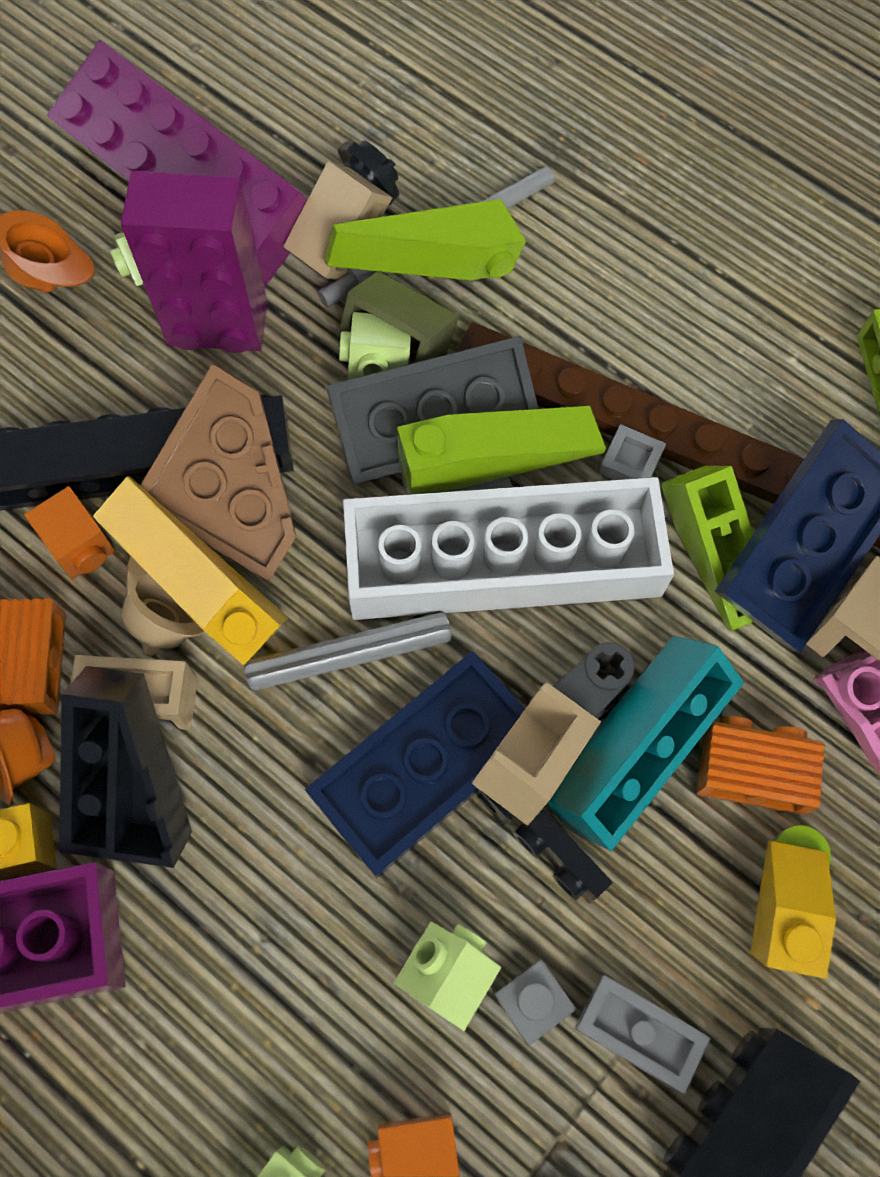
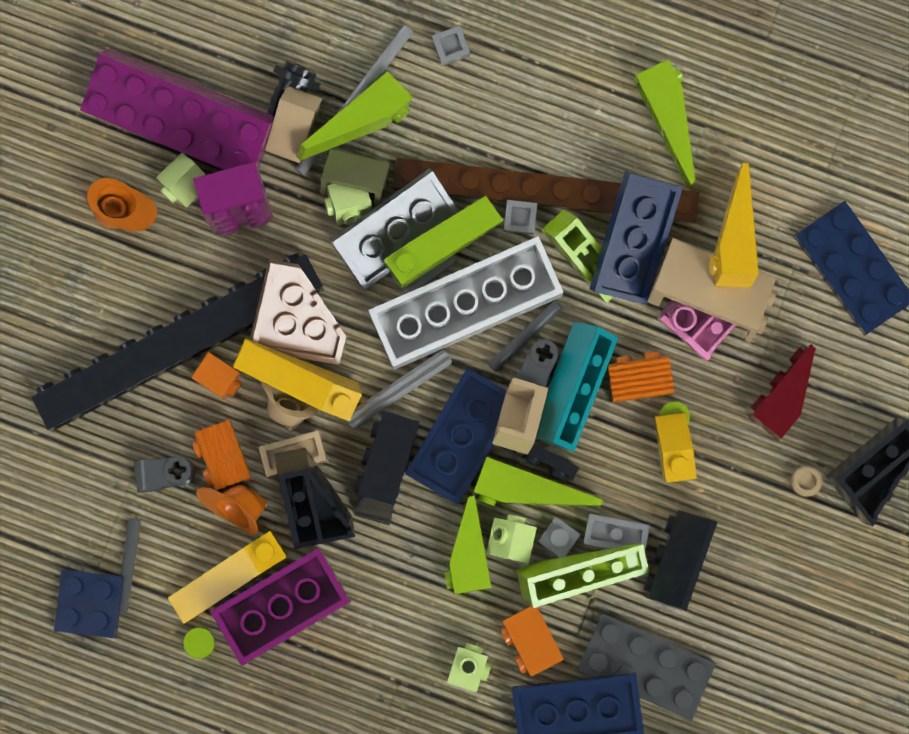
camera: 20 degrees left, 15 degrees up
(272, 766) = (384, 467): none -> black wedge
(358, 982) = (468, 560): none -> lime slope
(491, 880) = (515, 486): none -> lime slope
(554, 1087) = (580, 573): none -> lime slope
(581, 638) = (524, 336): none -> dark grey bar
(603, 207) = (451, 45): none -> light grey plate

